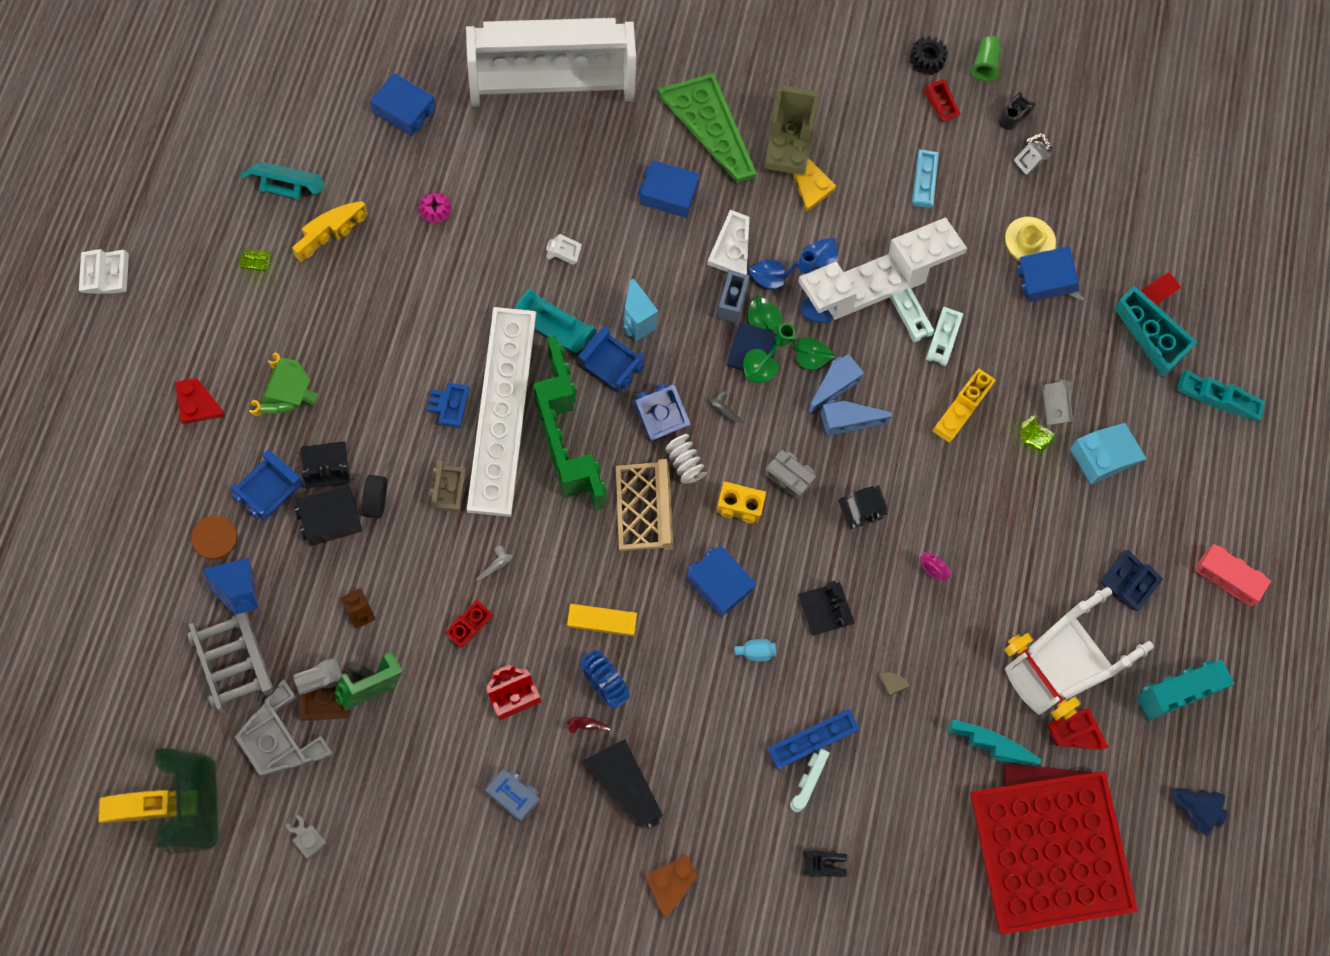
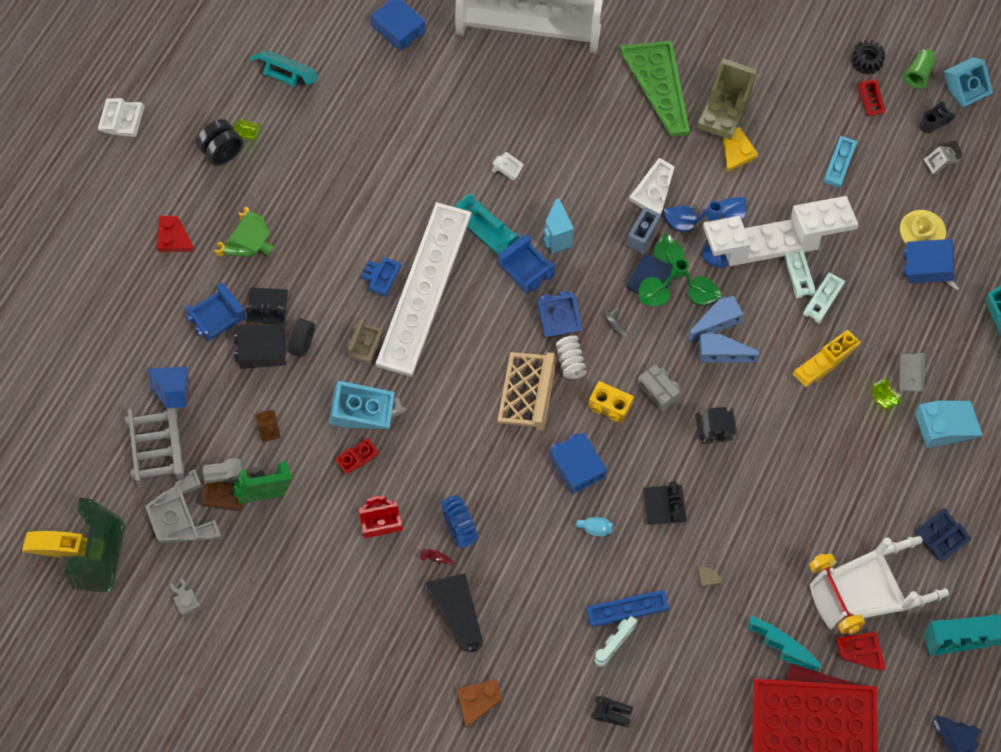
camera: 20 degrees right, 5 degrees down
(214, 537) = (163, 346): dark orange tile -> none
(227, 282) = (219, 142): none -> black wheel
(332, 223) = (317, 110): yellow slope -> none
(443, 210) = (411, 117): dark pink gear -> none
(461, 565) = (361, 406): none -> medium azure slope
(513, 795) = (361, 600): sand blue brick -> none
(554, 398) = (469, 286): green bracket -> none
(602, 620) = (469, 475): yellow tile -> none
(668, 188) = (610, 131): blue brick -> none
(935, 566) = (767, 487): dark pink gear -> none
(1040, 64) = (968, 81): none -> medium azure slope

